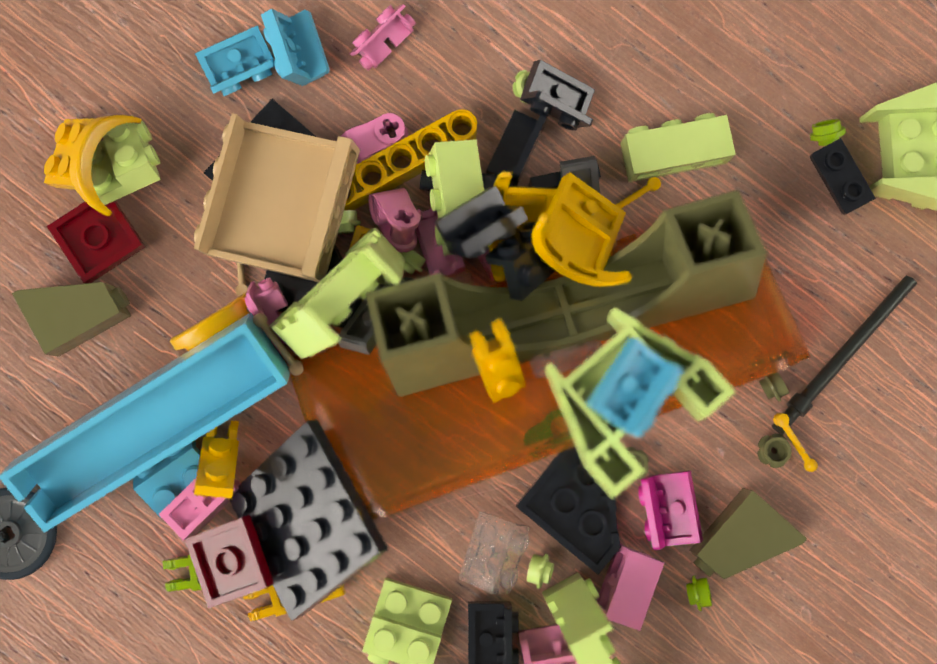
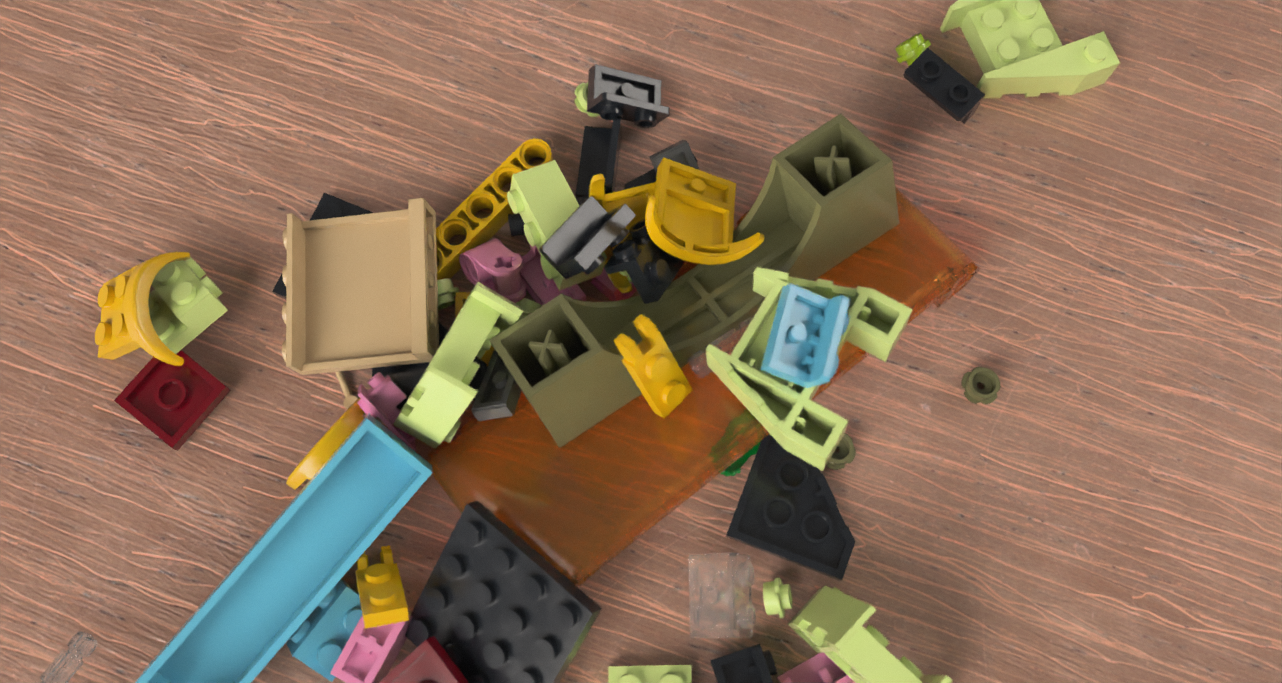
camera: 15 degrees left, 10 degrees down
(71, 313) = (168, 485): olive slope -> none
(236, 60) = (273, 165): medium azure bracket -> none
(295, 46) = (334, 131): medium azure bracket -> none
(295, 366) = (435, 458): tan hinge -> none
(373, 135) = (445, 195): bright pink piece -> none
(391, 26) = (429, 83): bright pink hinge -> none
(629, 587) = (882, 579): bright pink hinge -> none
(653, 185) = (754, 157): yellow hinge -> none
(670, 509) = (894, 483): dark pink bracket -> none
(677, 147) = (766, 111): yellowish green brick -> none
(699, 592) = (958, 564): lime plate -> none
(744, 537) = (983, 485): olive slope -> none
(774, 386) = (954, 317): olive plate -> none
(782, 420) = (977, 349): yellow hinge -> none
(802, 403) = (991, 326): pearl dark grey bar -> none

